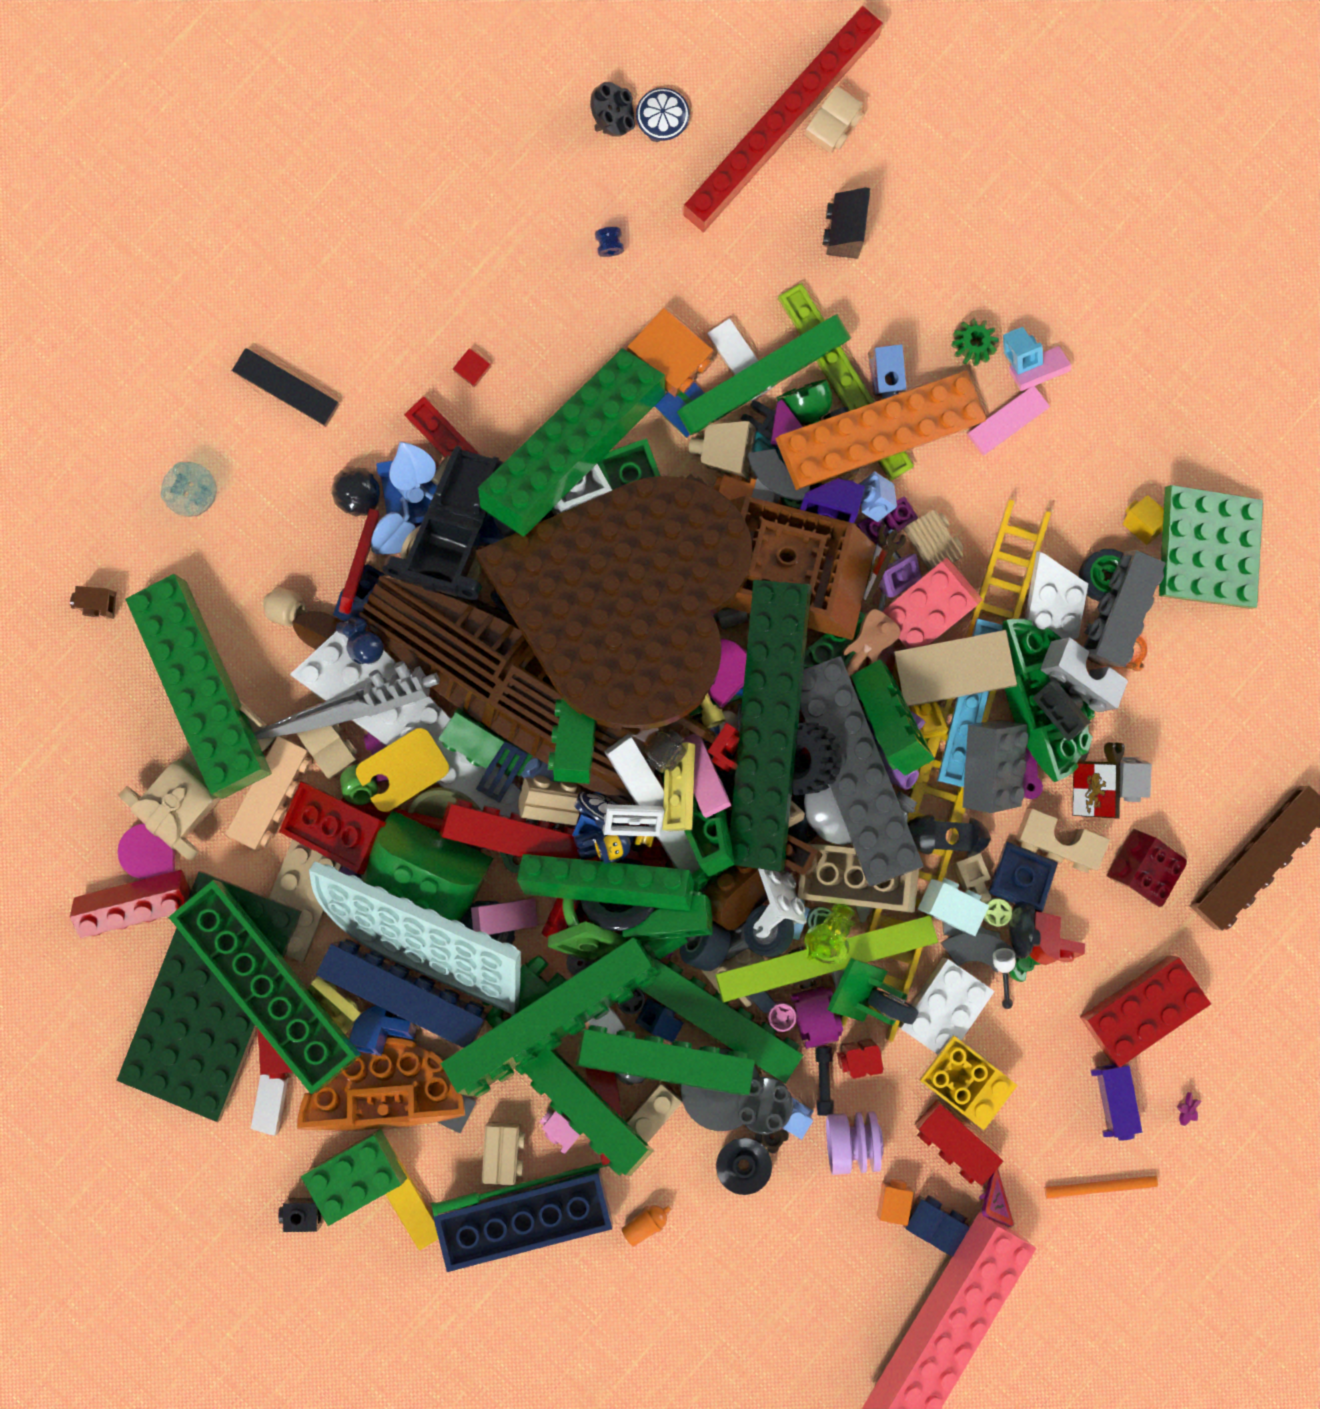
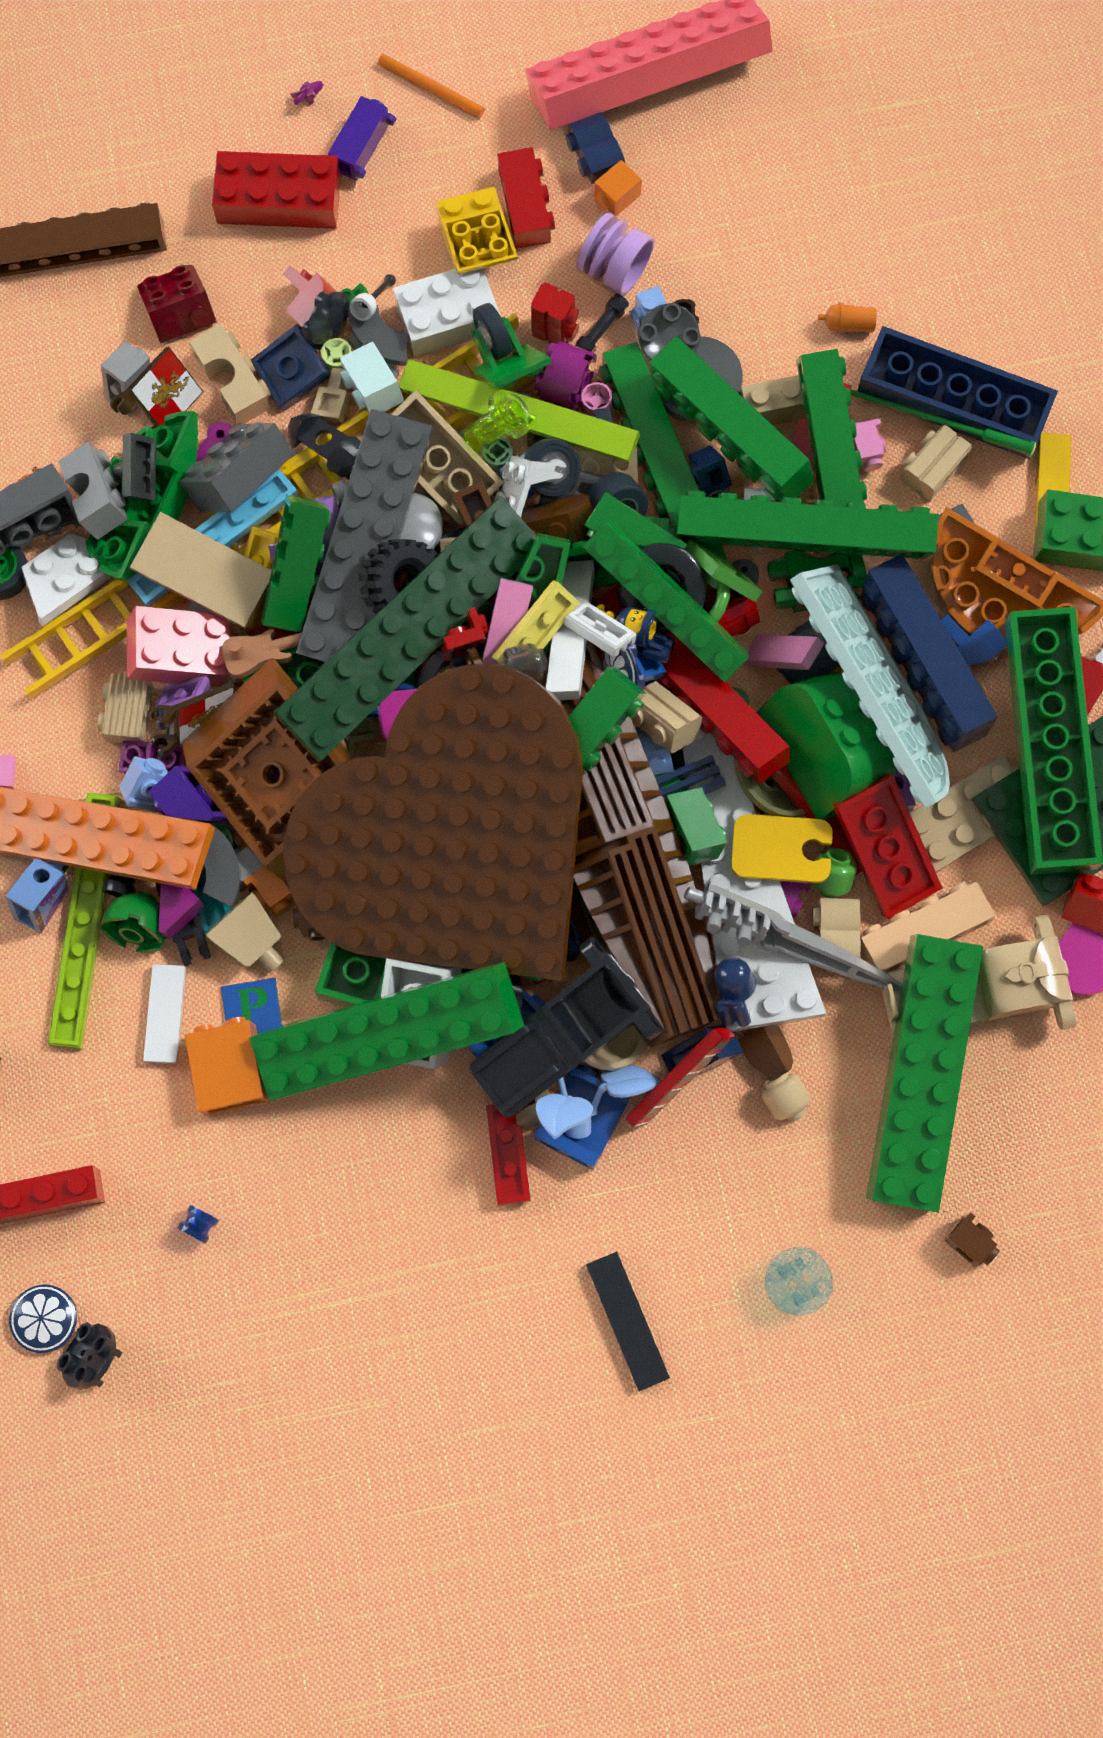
camera: 140 degrees left, 10 degrees down
(341, 1010) = (996, 676): light yellow plate -> none
(355, 491) = (634, 1160): black hair -> none
(471, 367) = (428, 1201): red tile -> none
(744, 1180) = (726, 293): black dish -> none
(763, 374) = (155, 976): green beam -> none
(995, 1201) = (533, 125): piece -> none

